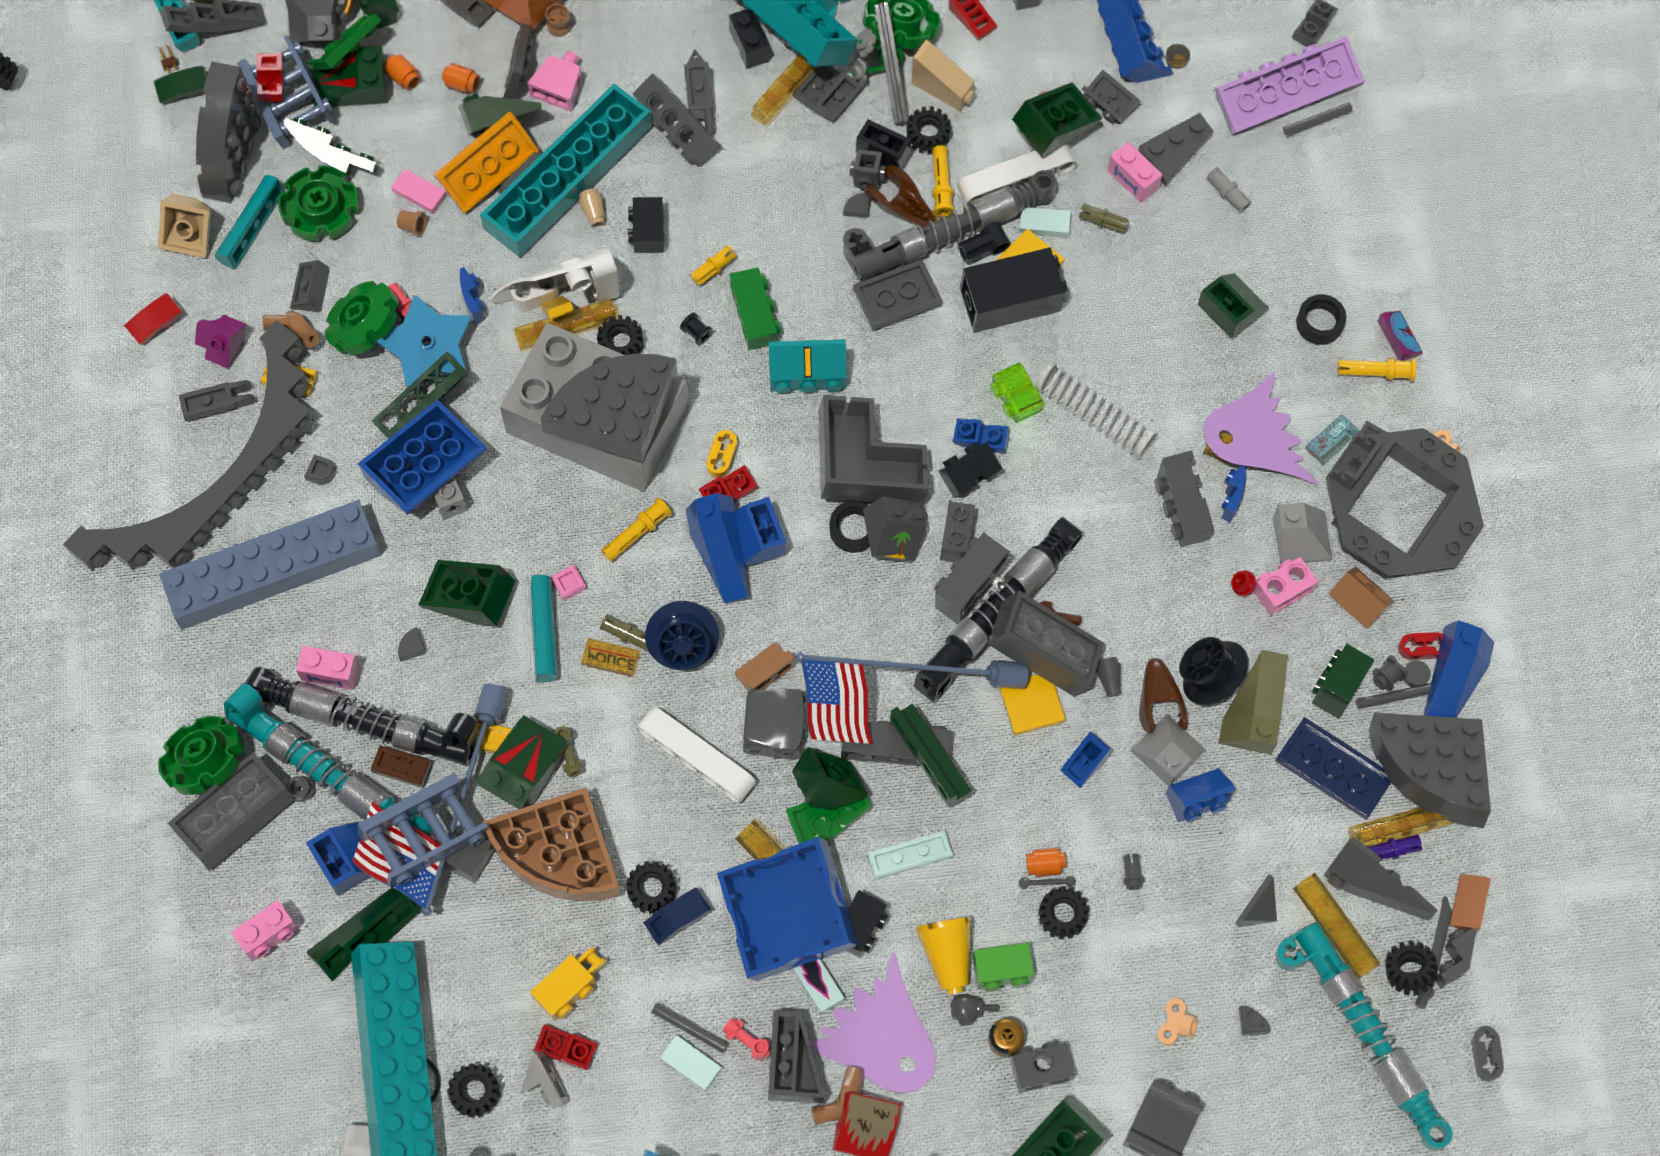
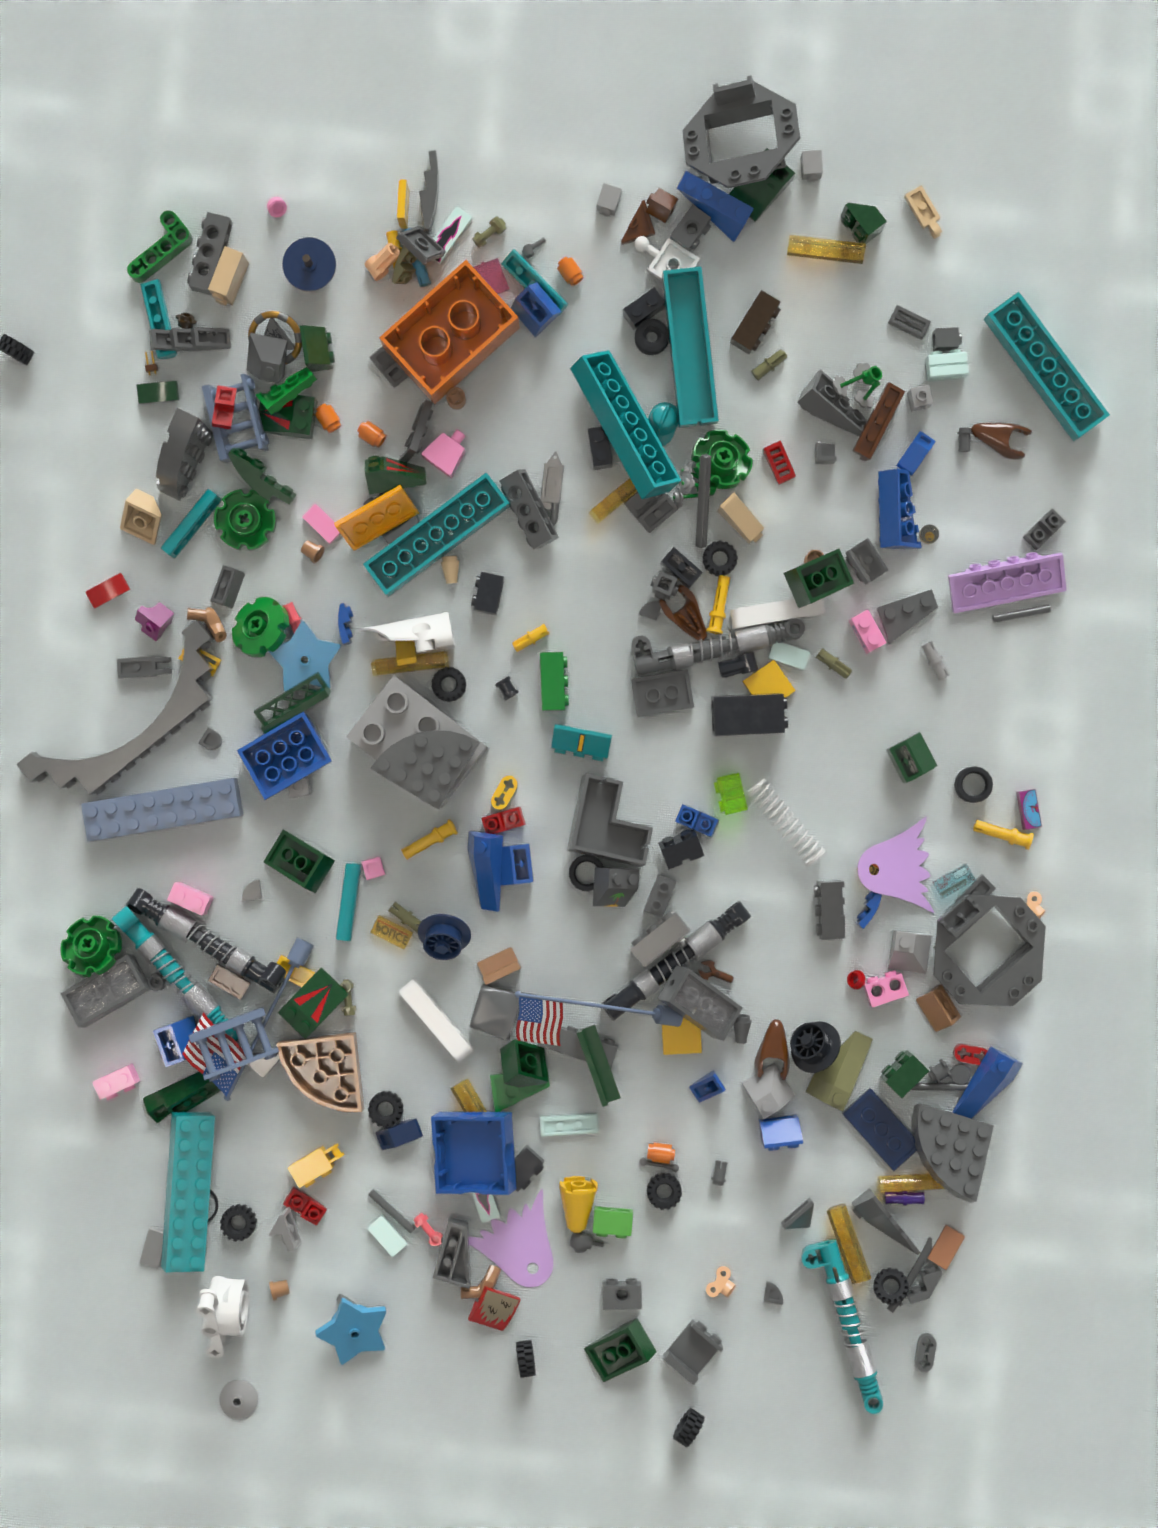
camera: 15 degrees right, 20 degrees up
(1002, 1046) = (600, 1264): pearl gold head -> none

